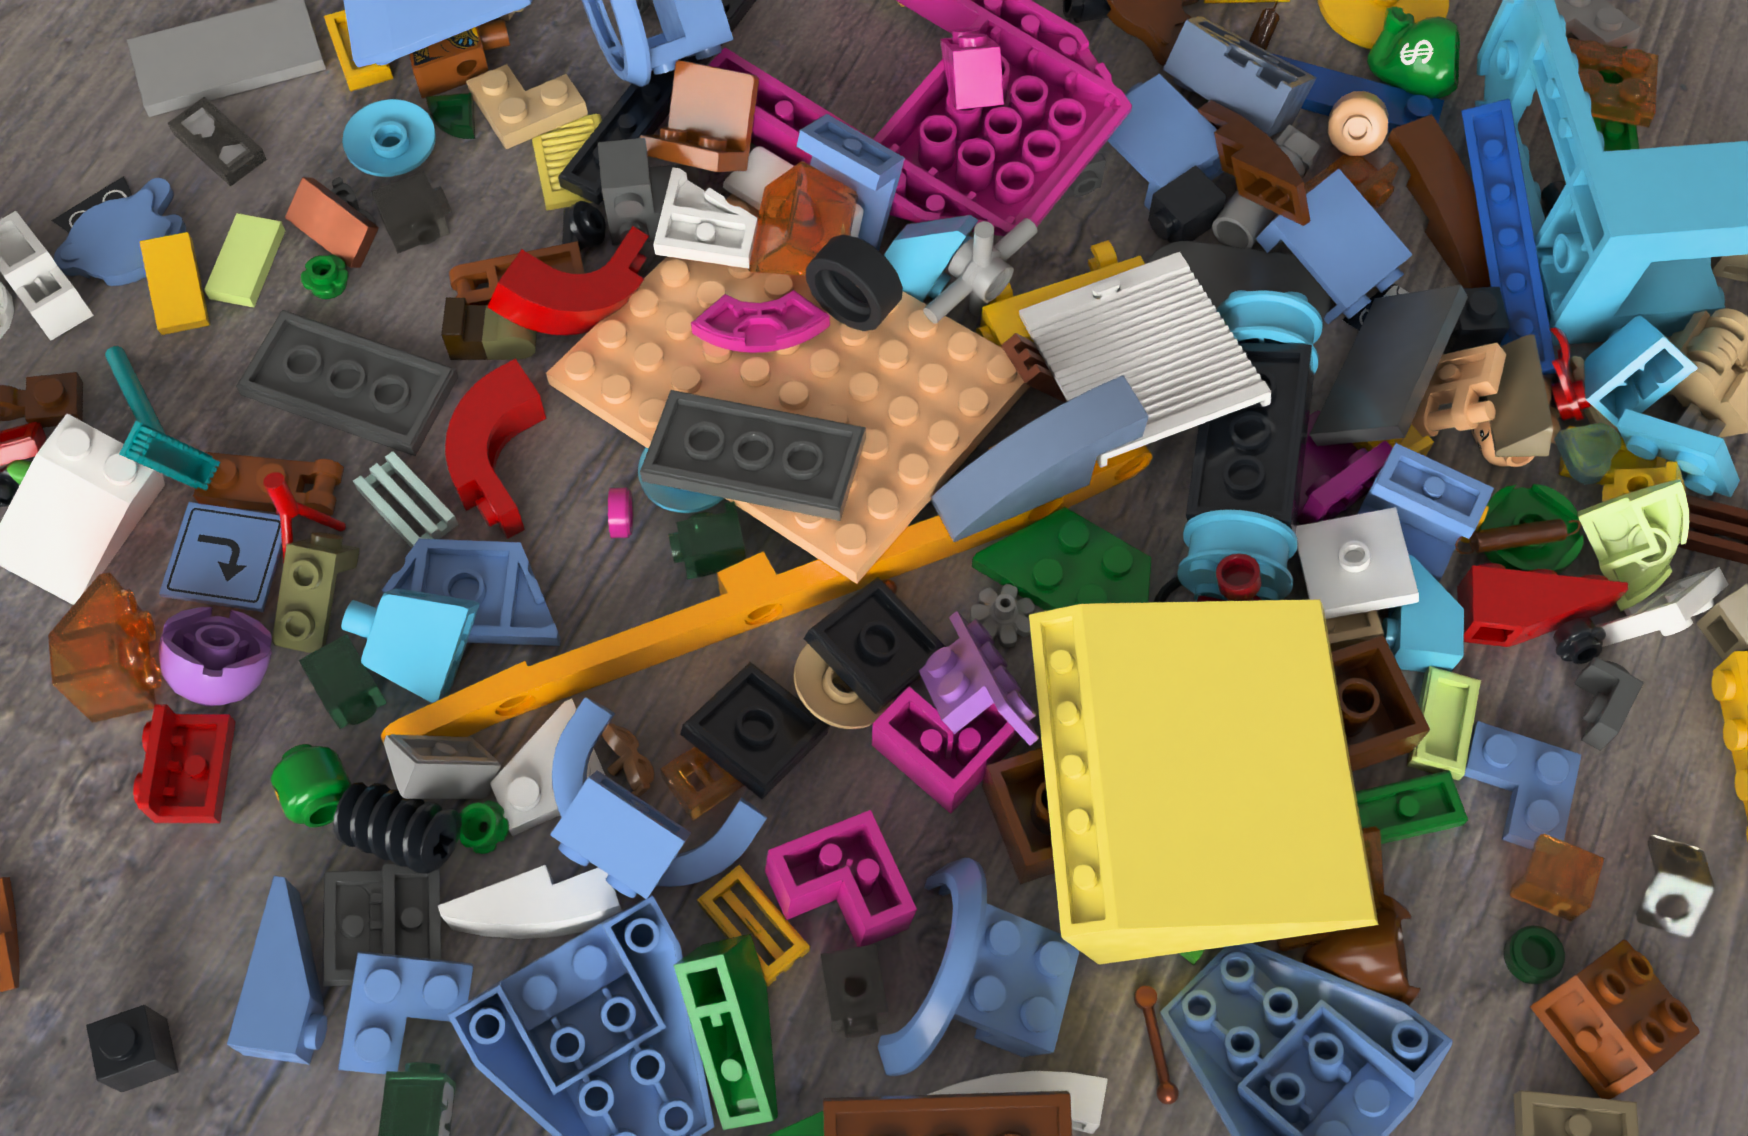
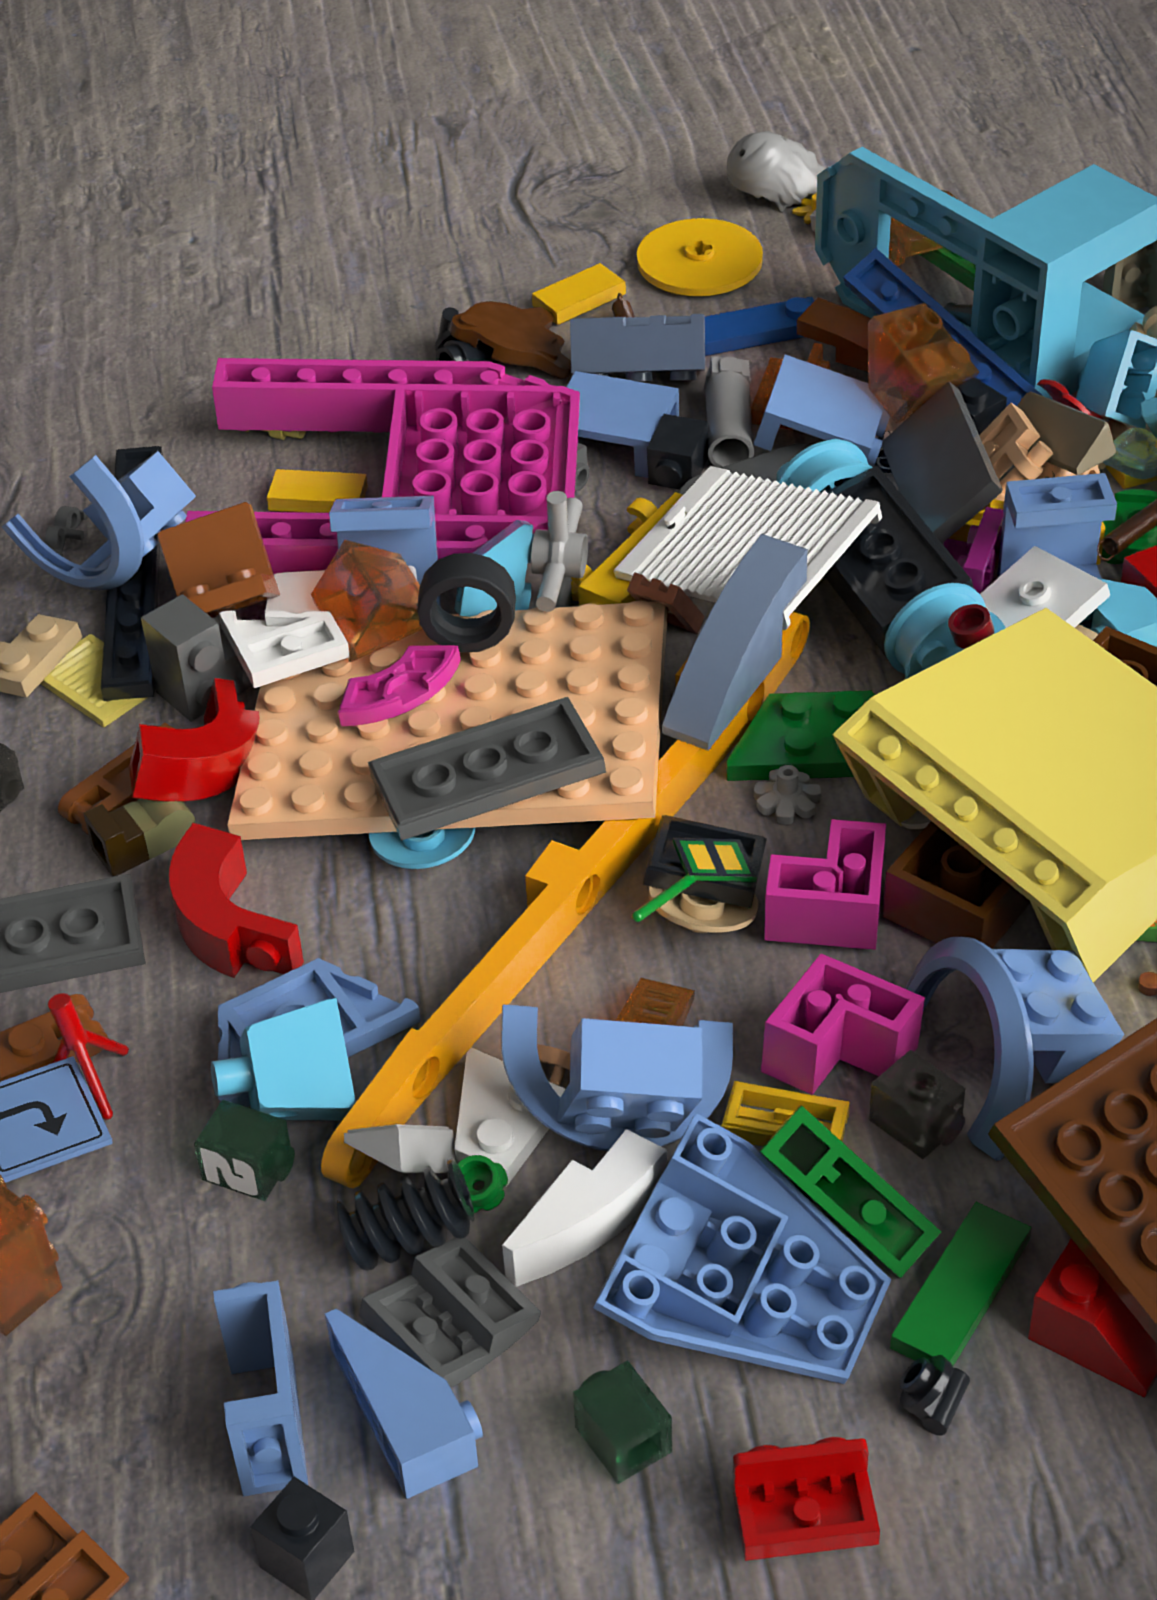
camera: 30 degrees left, 20 degrees down
(184, 766) = (150, 1300): red bracket -> none
(200, 918) = (266, 1428): none -> medium blue panel
(214, 656) = (105, 1195): medium lavender cylinder -> none
(309, 589) = (148, 1104): olive bracket -> none
(310, 784) = (289, 1239): green head -> none
(381, 475) = (175, 989): light aqua tile -> none
(385, 994) = (514, 1353): medium blue plate -> none
(583, 224) = (153, 710): black plate -> none
(620, 512) = (389, 892): dark pink tile -> none
(708, 542) = (492, 870): clear green brick -> none
(754, 730) = (658, 977): black tile -> none
(867, 653) = (703, 861): none -> piece
(870, 72) = (313, 490): none -> yellow tile
(972, 69) = (430, 416): slope -> none
(973, 677) = (824, 817): medium lavender bracket -> none
(1258, 164) = (721, 381): reddish brown slope -> none
(1358, 123) = (763, 334): light nougat head -> none
(1417, 55) = (766, 272): green piece -> none
(1451, 240) = (913, 359): none -> clear orange slope

